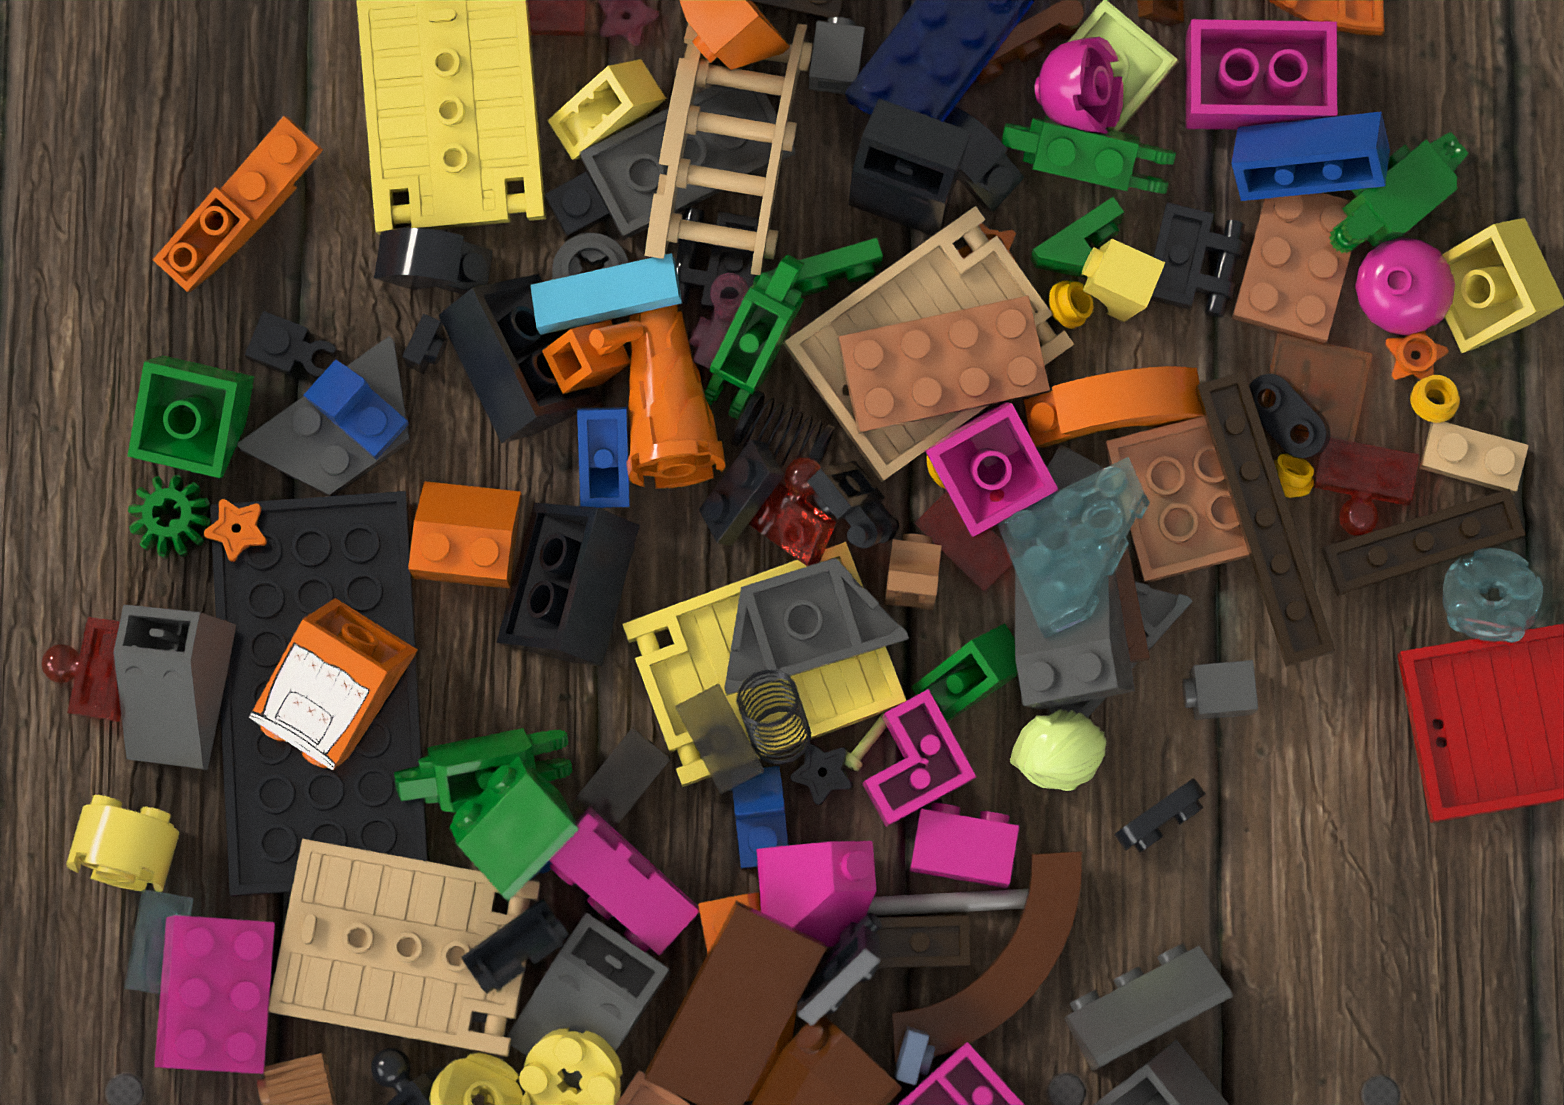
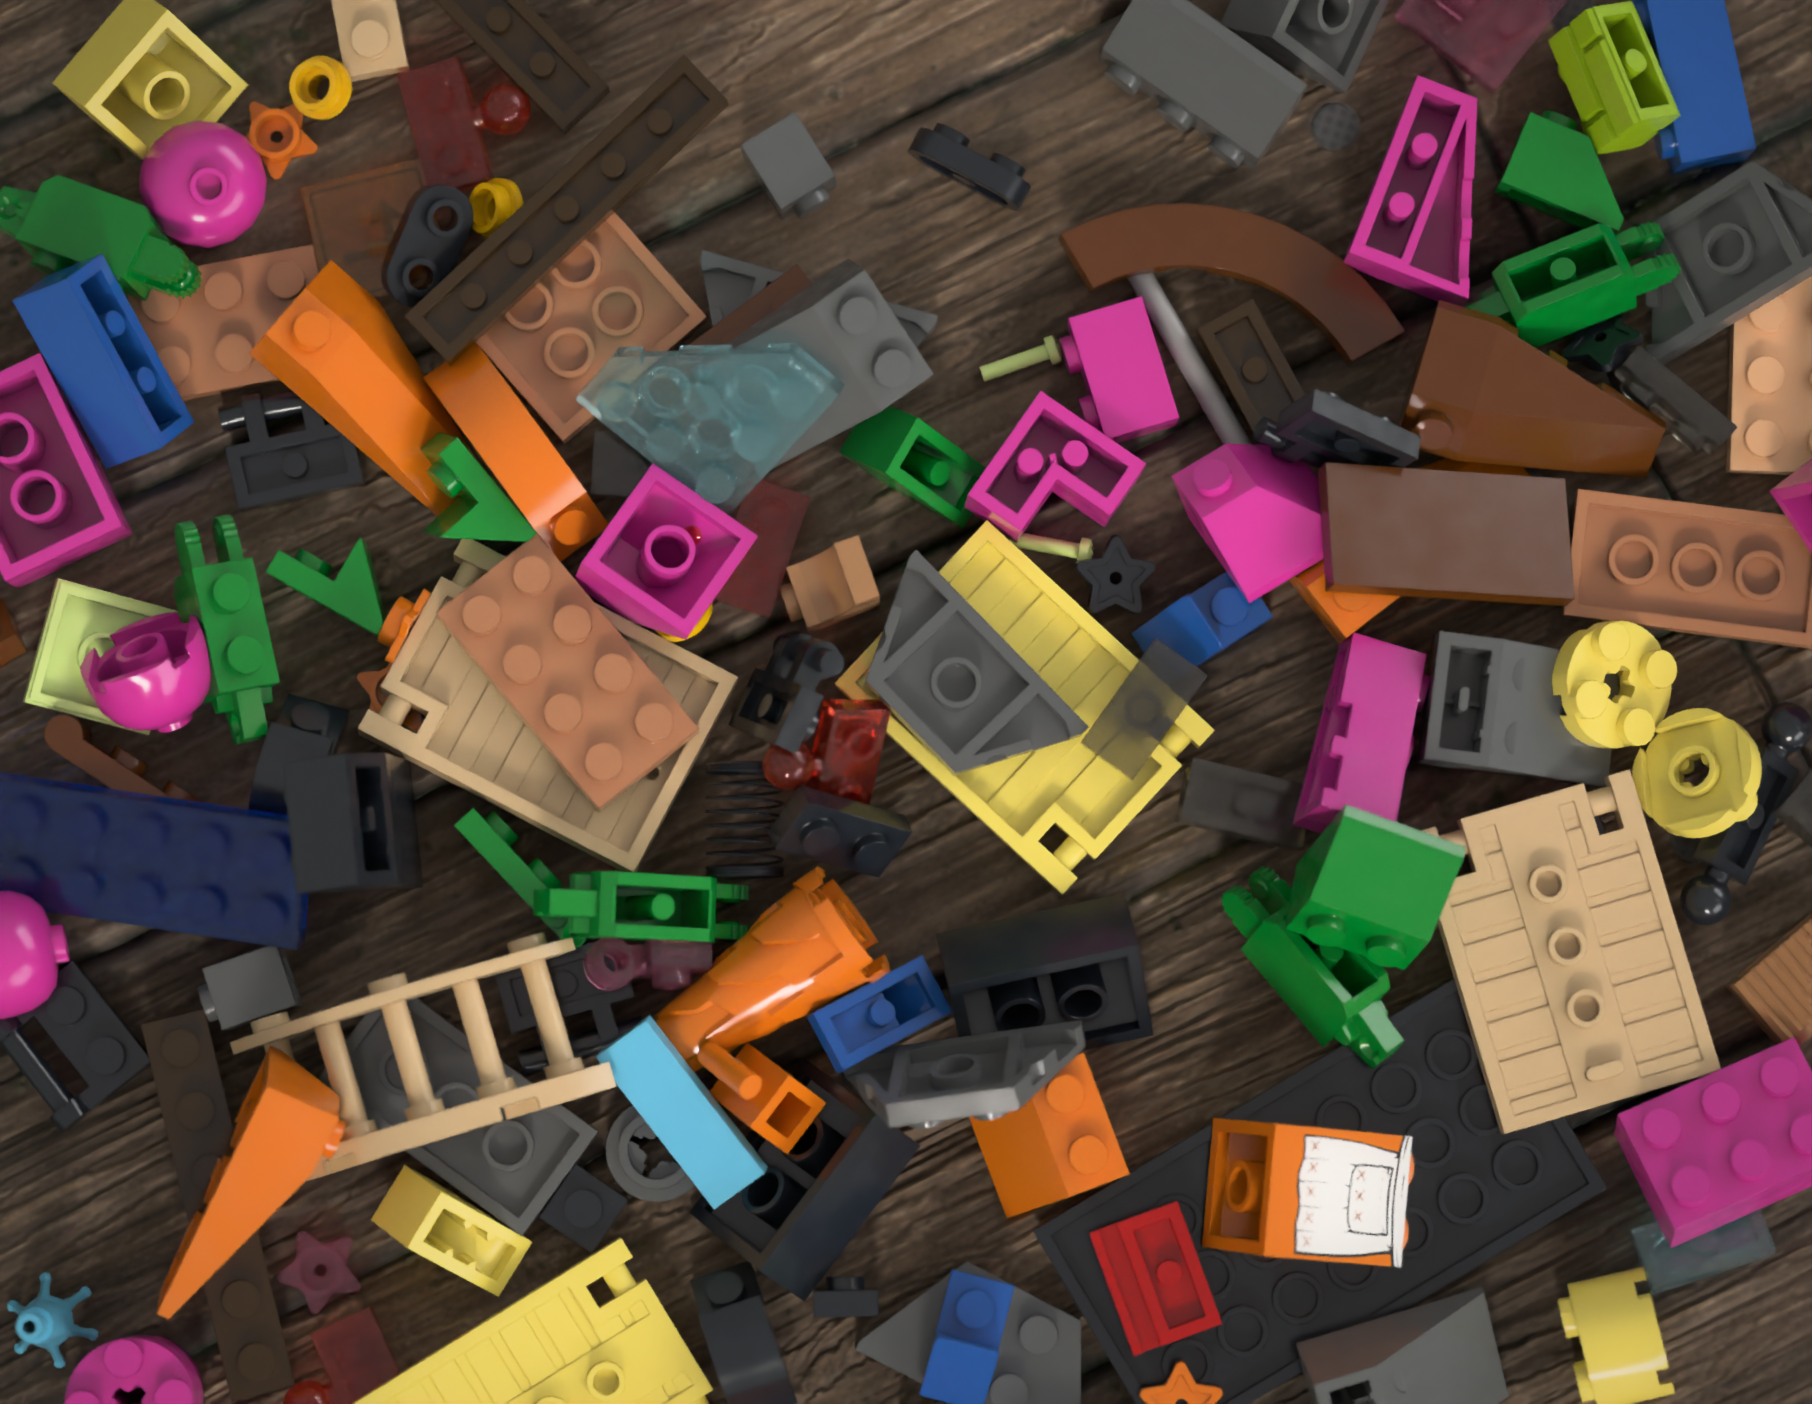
camera: 120 degrees left, 5 degrees up
(330, 552) = (1155, 1278): none -> red plate
(527, 936) = (1482, 806): black hinge -> none
(531, 490) = (964, 1074): none -> dark grey wing
(797, 709) = (1058, 645): black piece -> none
(914, 1056) = (1391, 309): sand blue plate -> none
(1005, 806) = (1049, 350): none -> yellowish green piece
(1034, 271) = (400, 623): none -> orange plate
(1059, 750) = (955, 317): yellowish green hair -> none
(1070, 303) = (416, 563): yellow plate -> none
(1083, 356) = (482, 507): none -> green slope
(1121, 278) = (364, 508): light yellow arch -> none
(1219, 327) = (360, 376): none -> orange wedge

